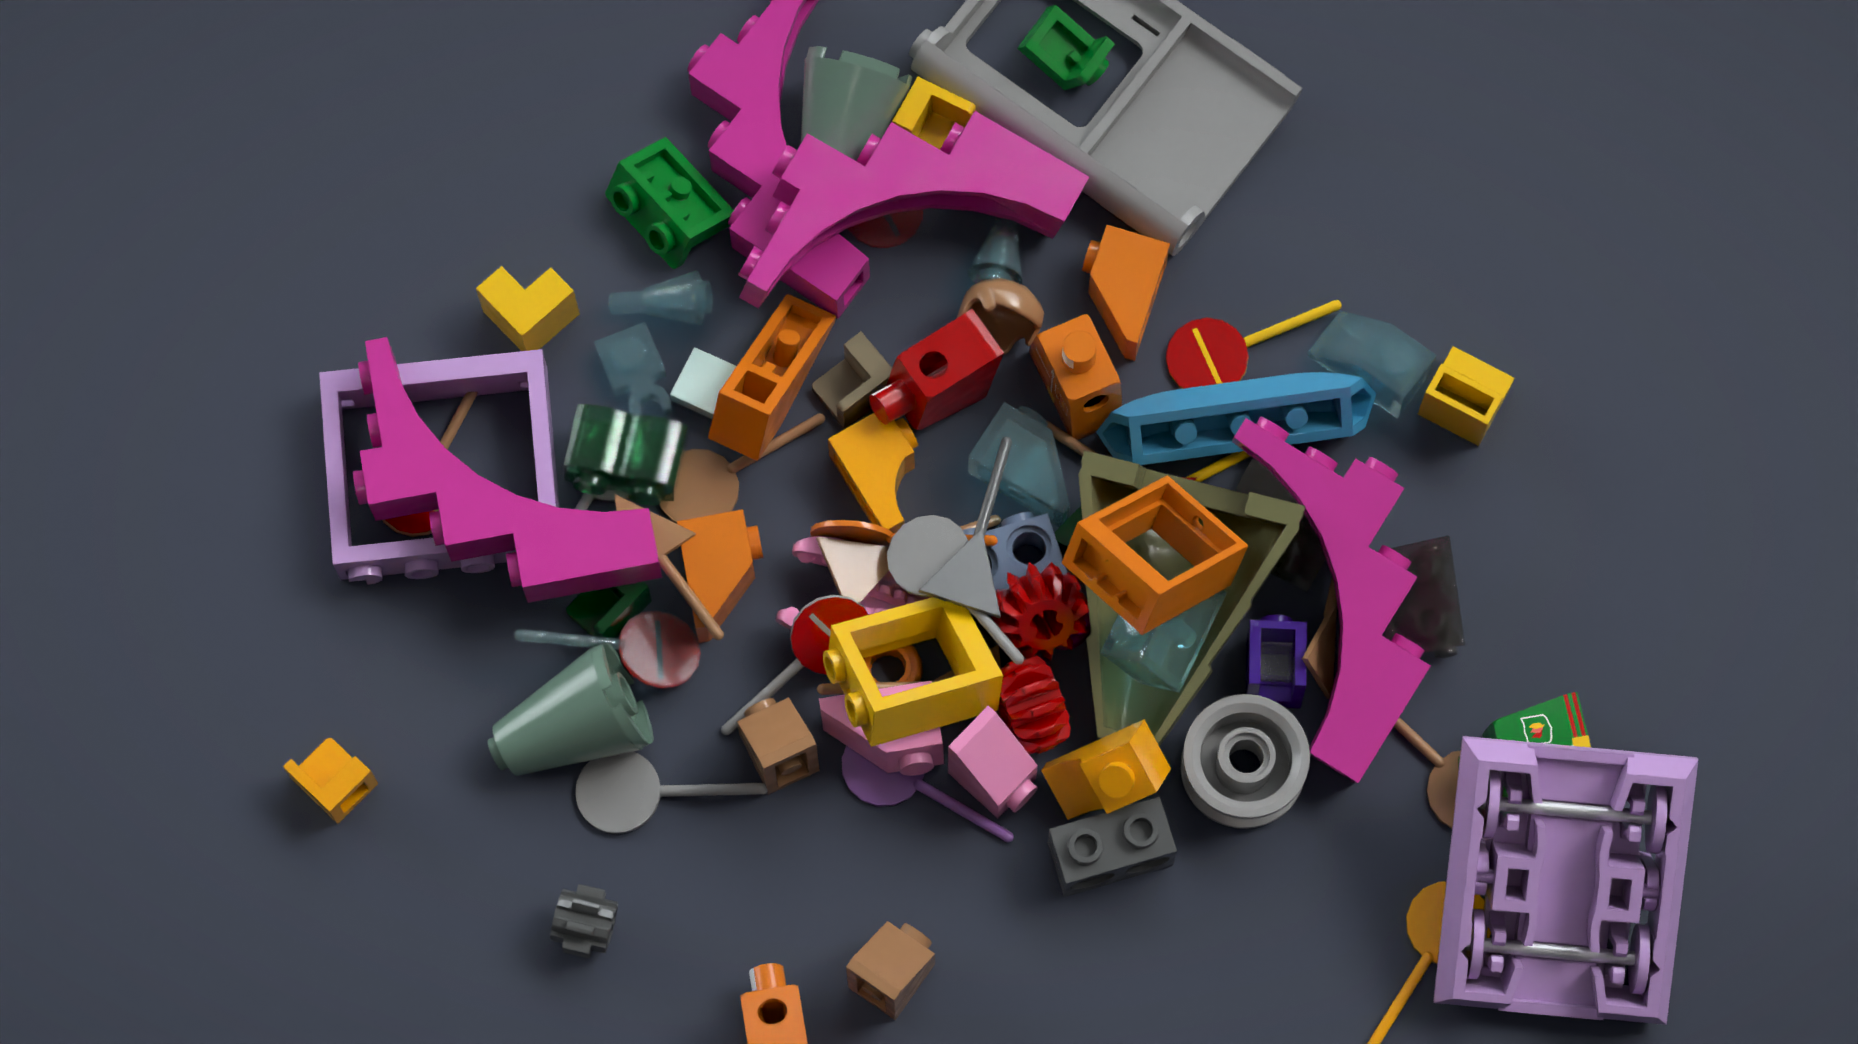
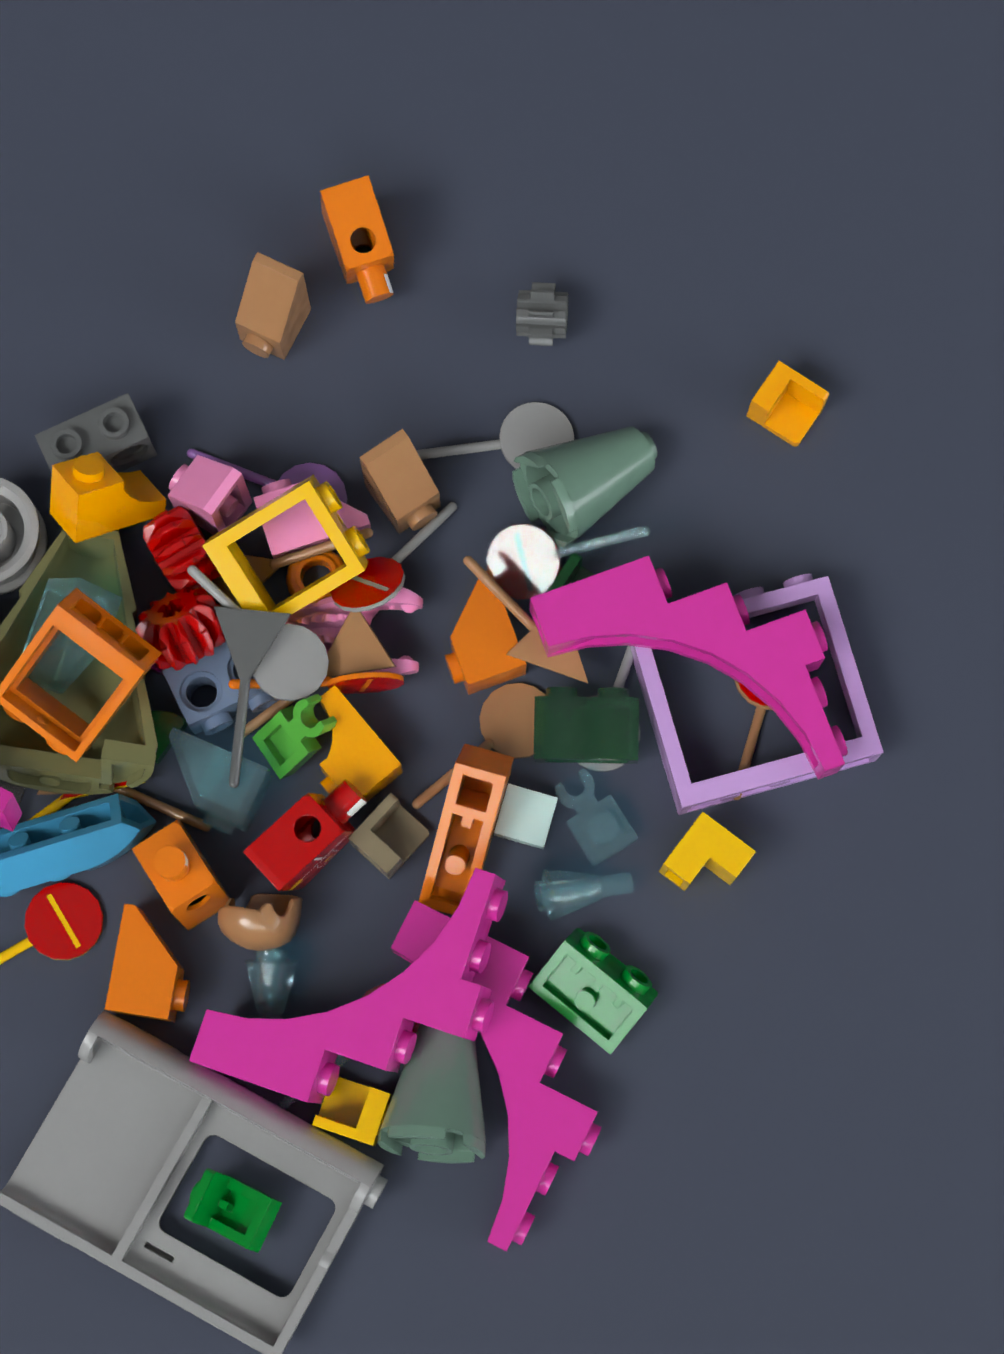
camera: 170 degrees right, 5 degrees up
(939, 491) = (290, 736): none -> bright green plate

